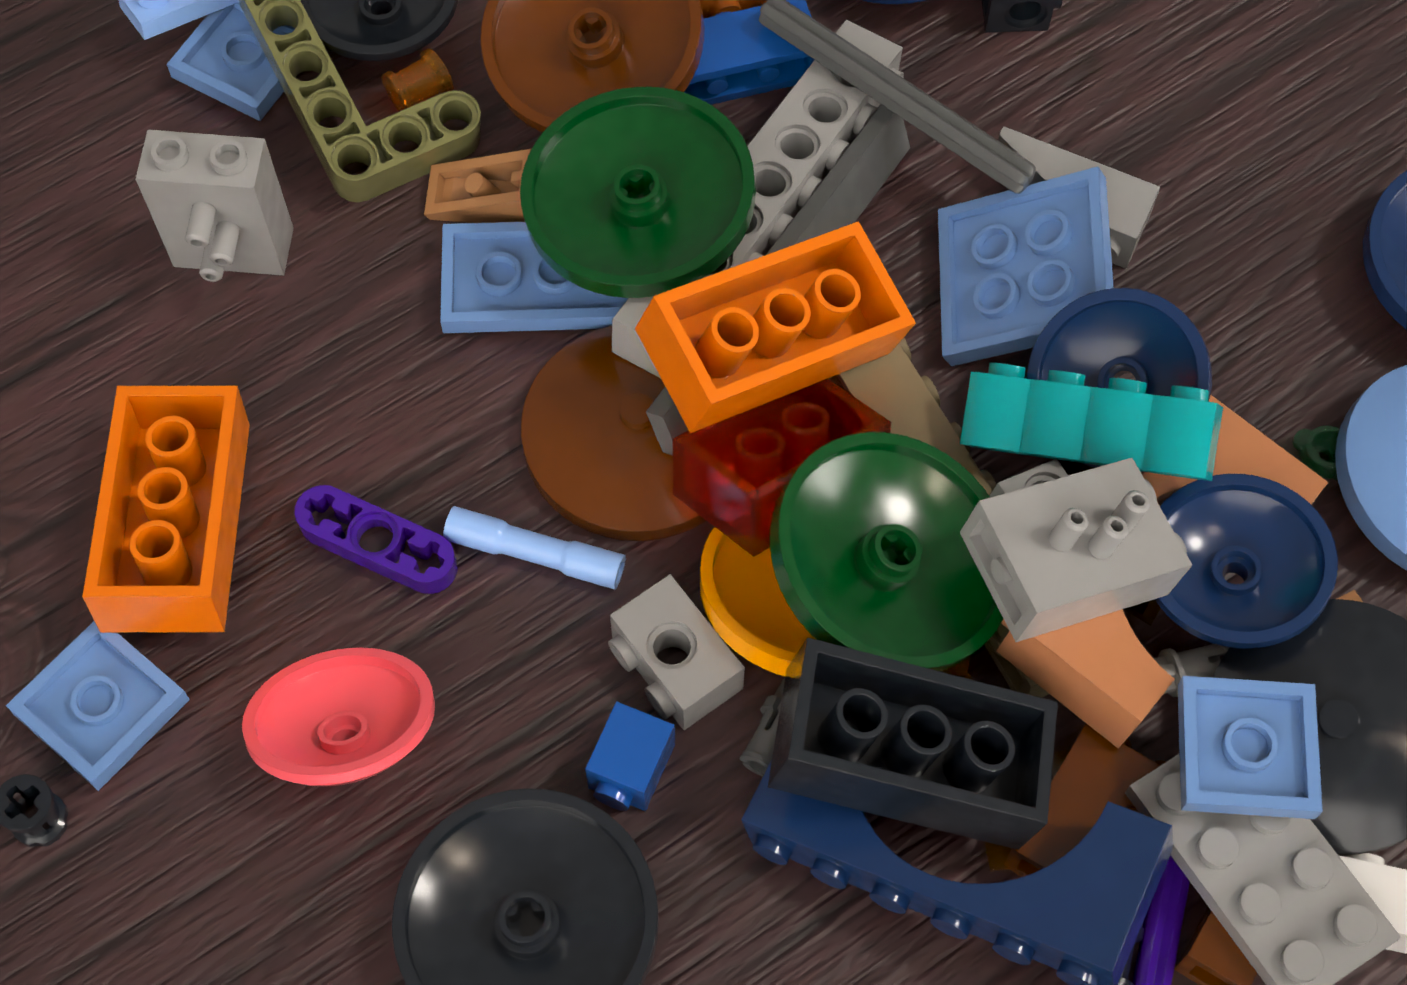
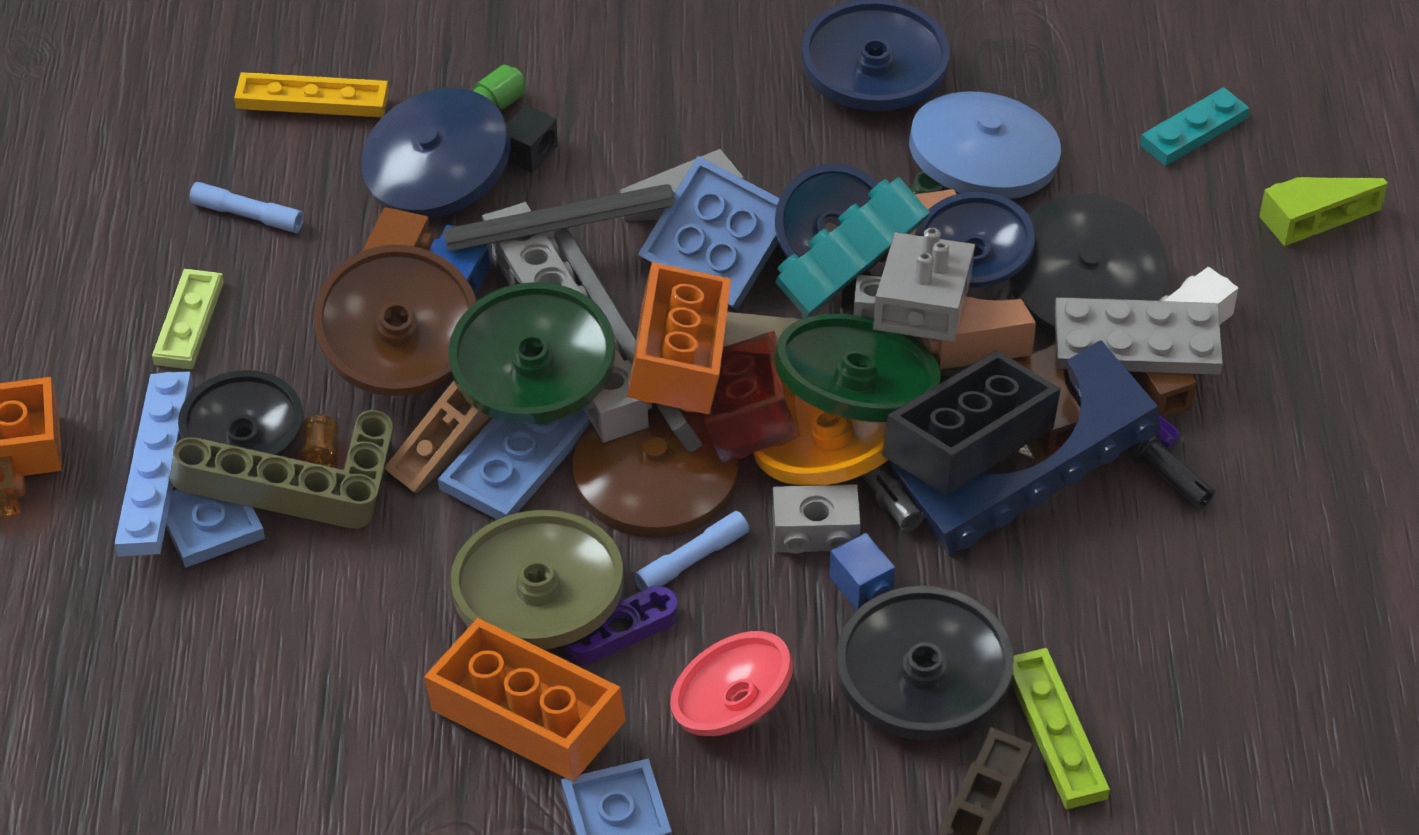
camera: 55 degrees left, 15 degrees down
(215, 202) = (338, 564): light grey piece -> none
(358, 413) = (539, 577): none -> olive dish
(1249, 747) = (1081, 291): medium blue plate -> none

